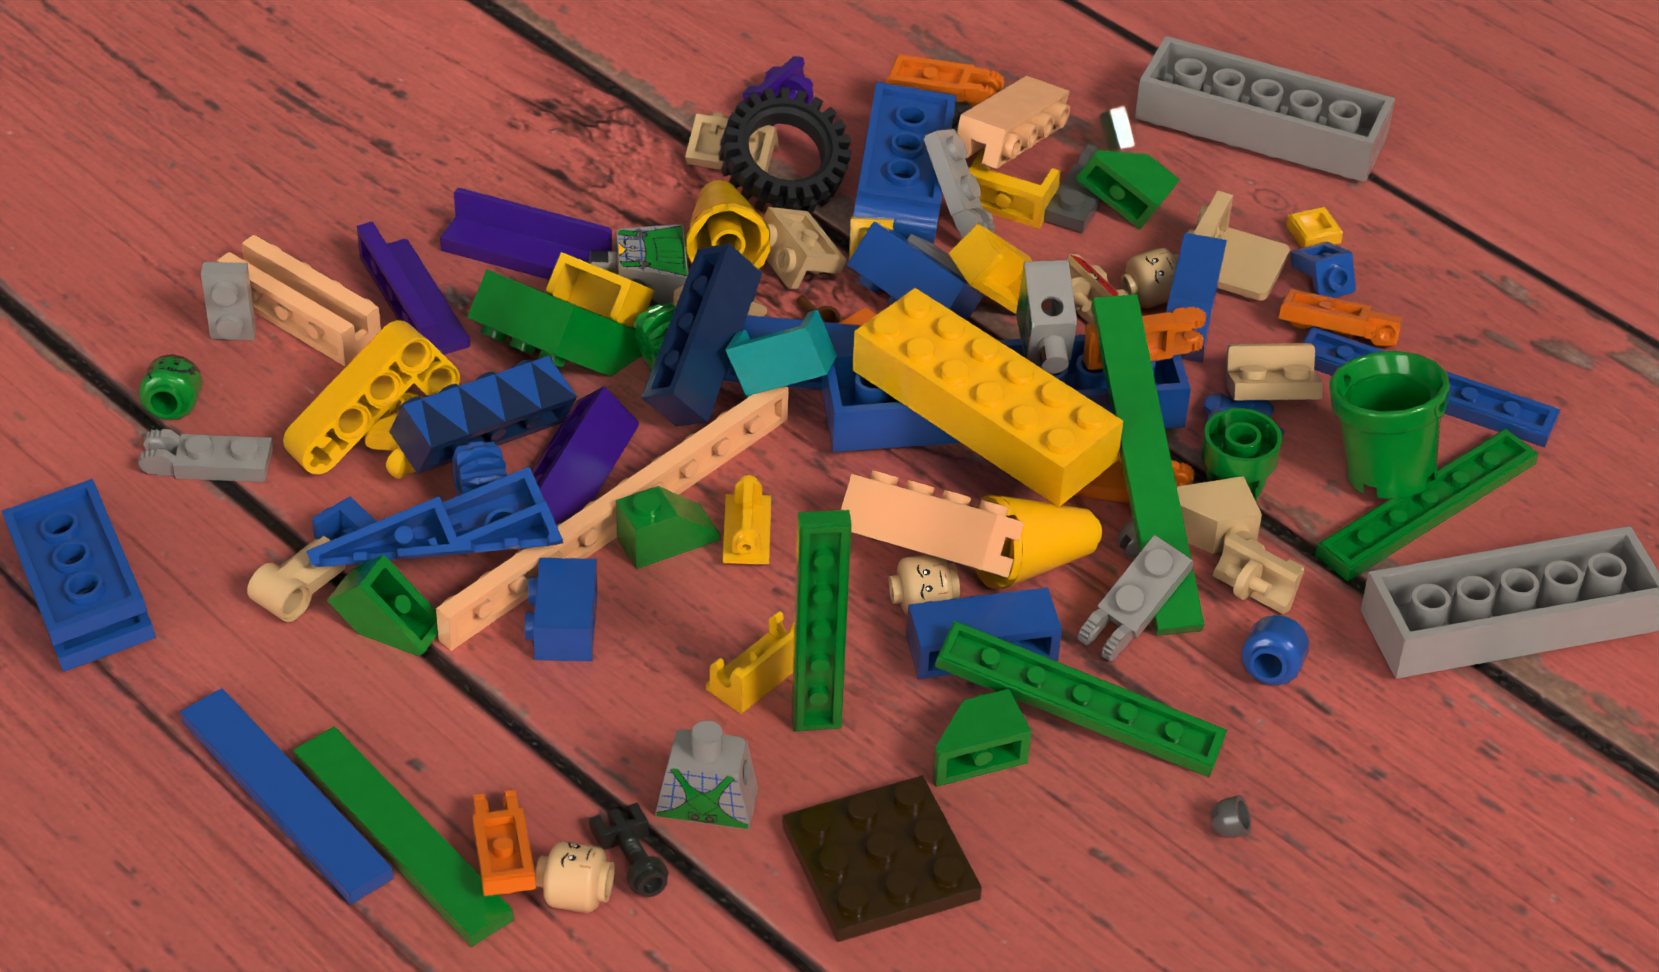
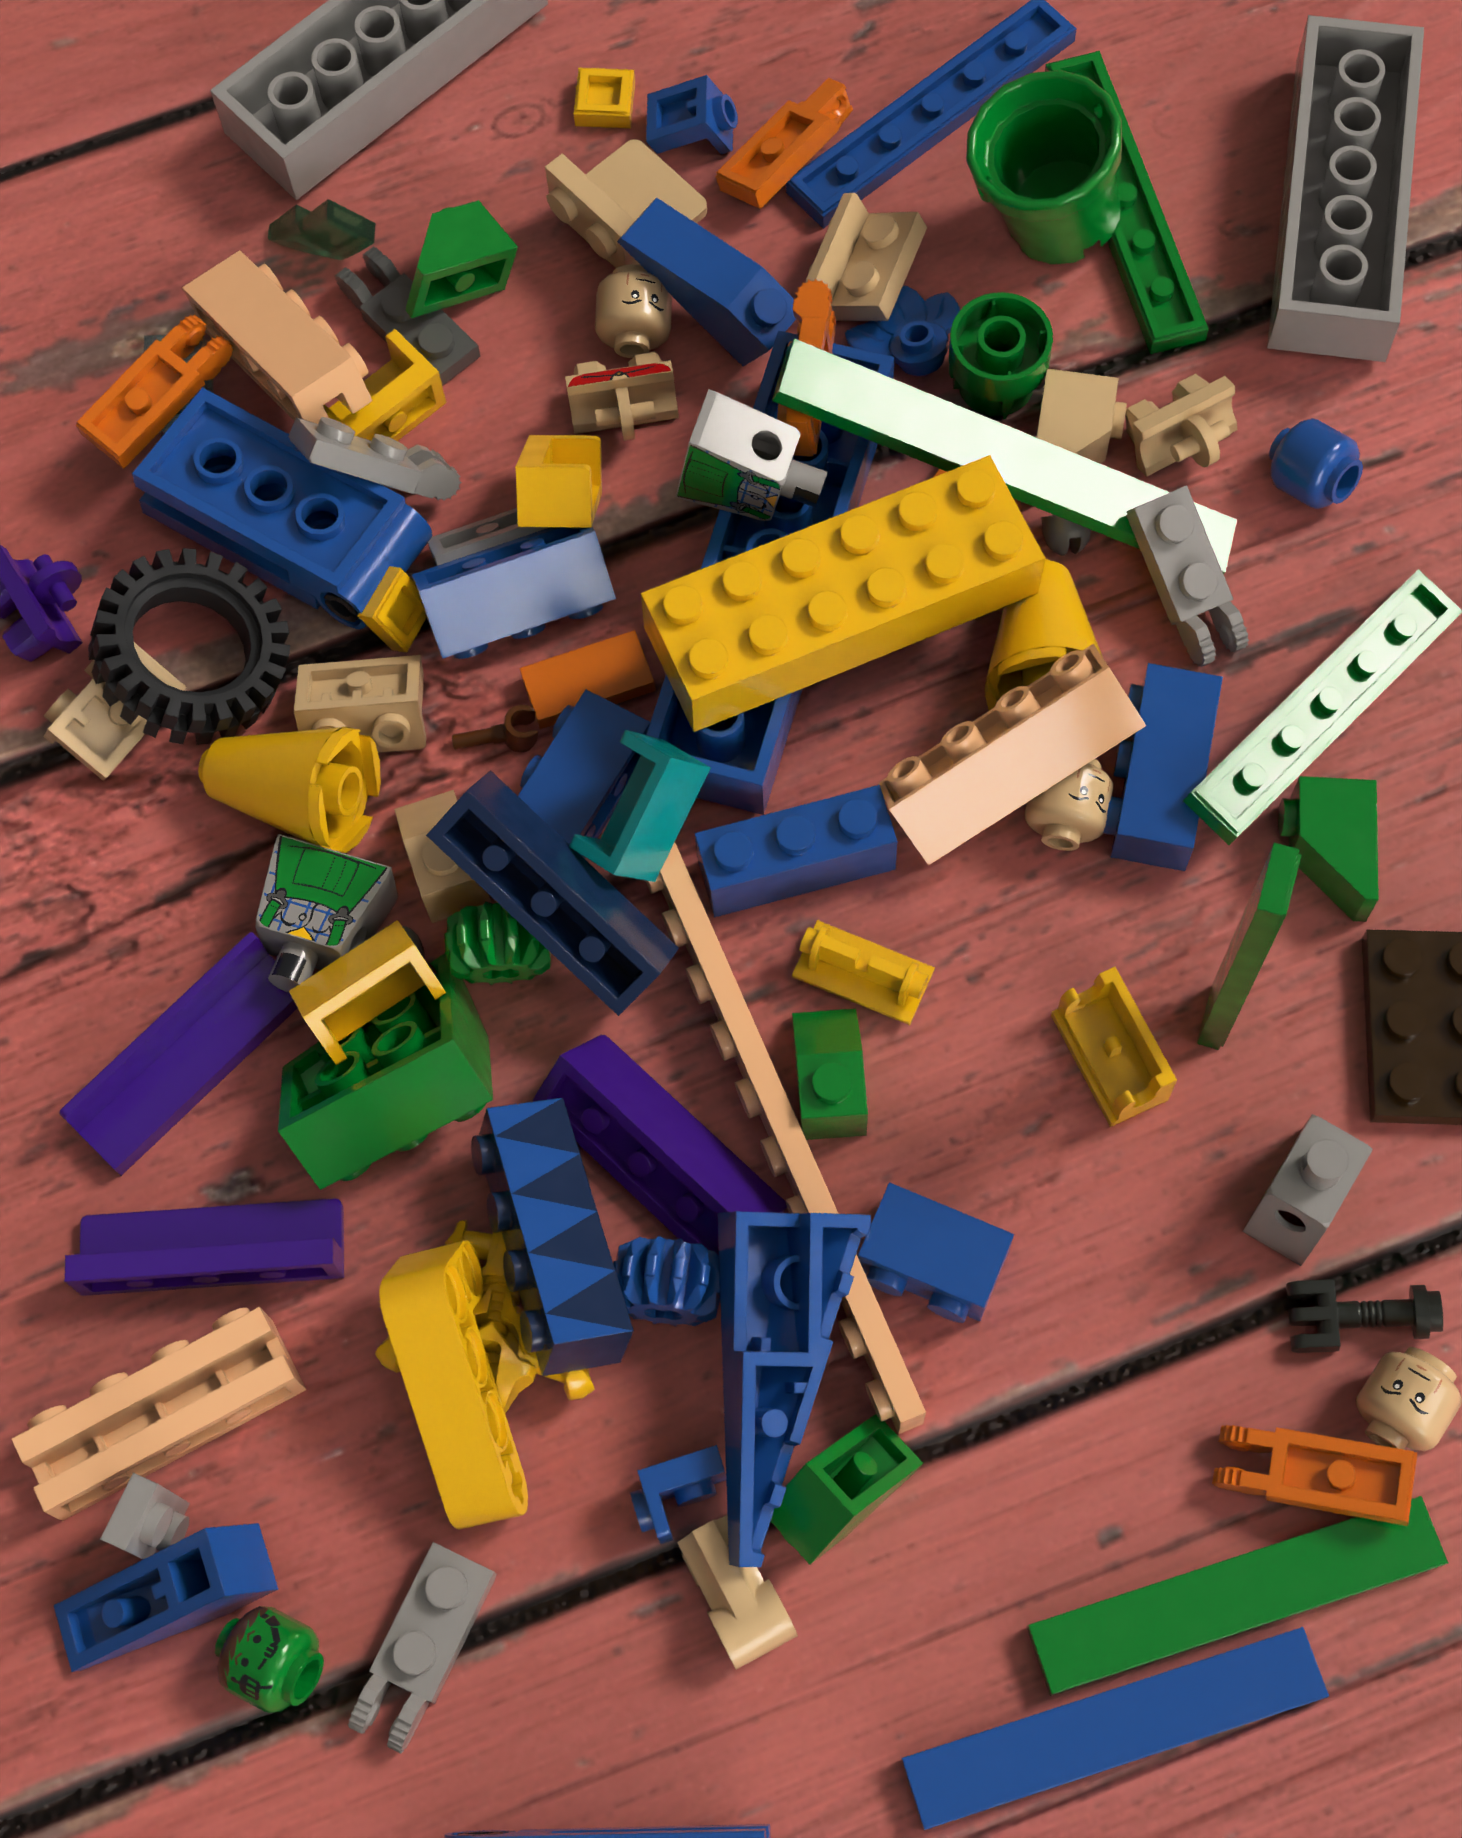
camera: 60 degrees left, 25 degrees up
(199, 334) = (166, 1594): none -> blue slope
(802, 456) = (796, 850): none -> blue brick

